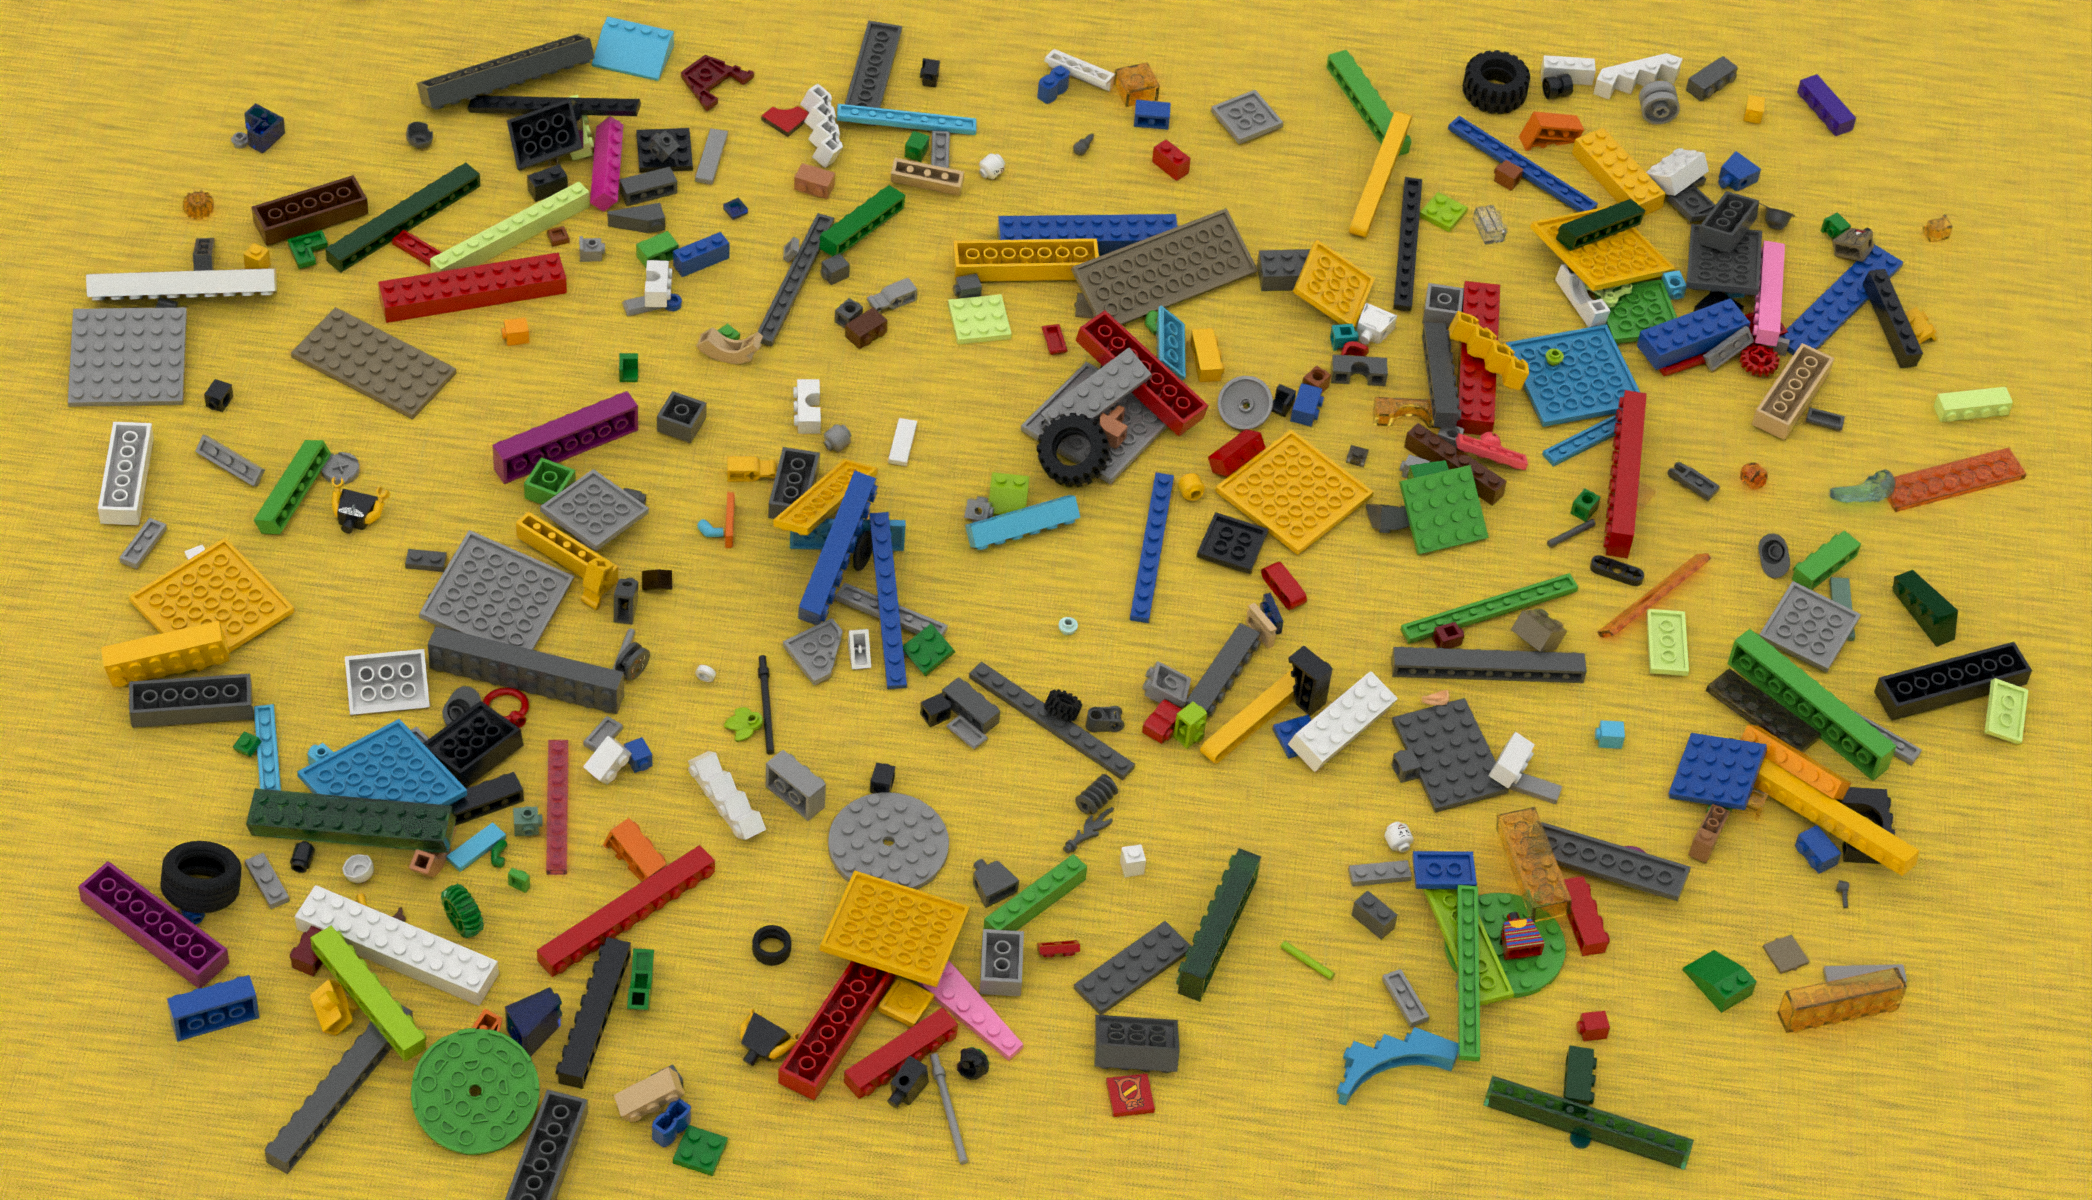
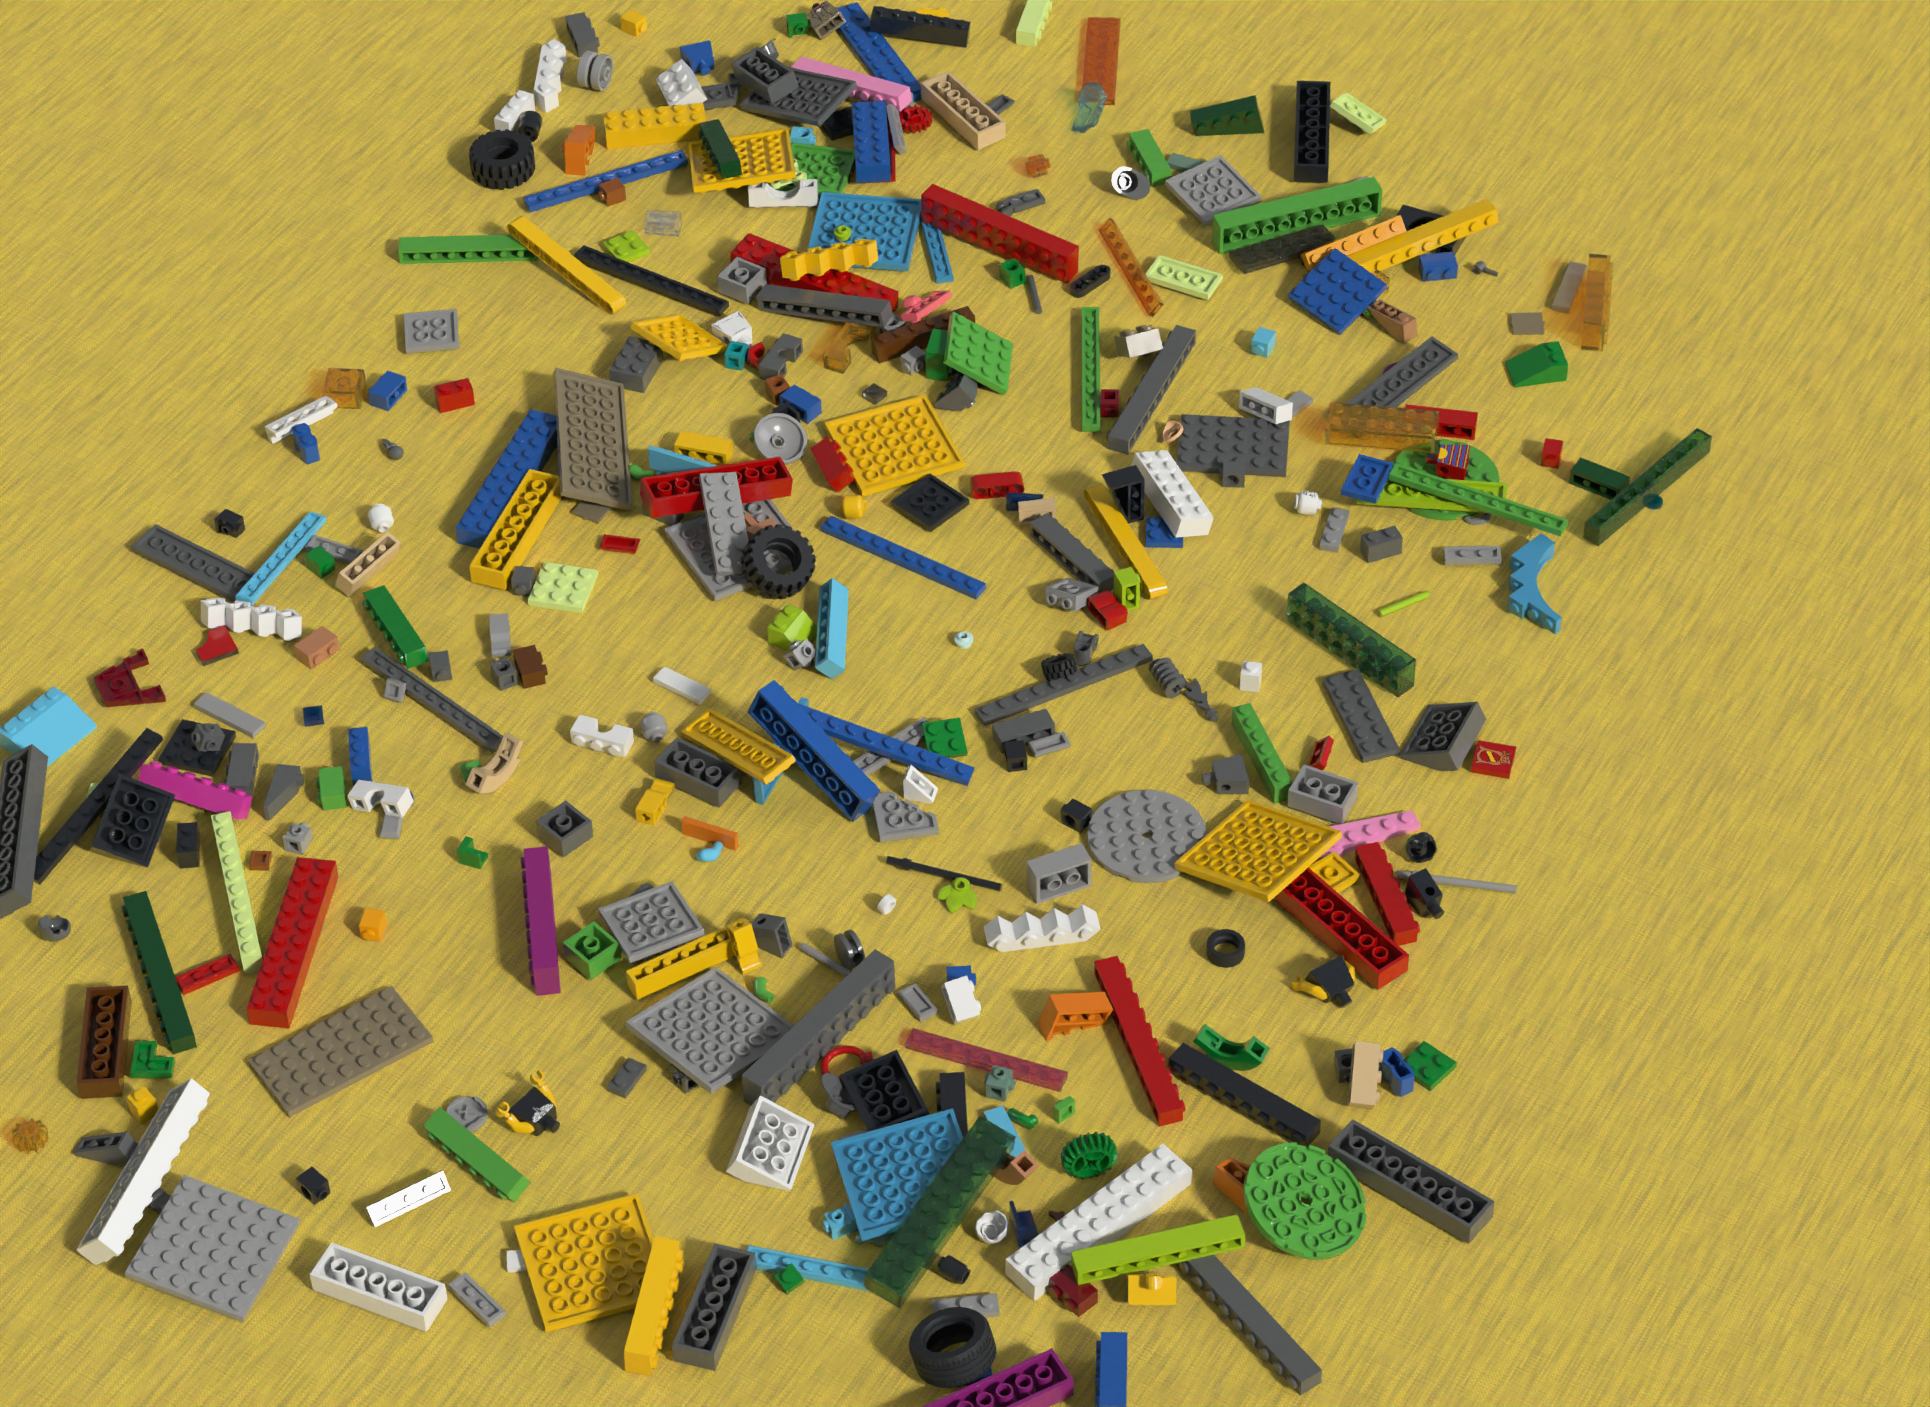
camera: 60 degrees left, 5 degrees down
(370, 888) = (1022, 1225): none -> clear blue panel
(534, 1019) = (1241, 1134): clear blue slope -> none
(564, 617) = (760, 989): none -> bright green arm
(657, 579) = (752, 906): dark brown panel -> none

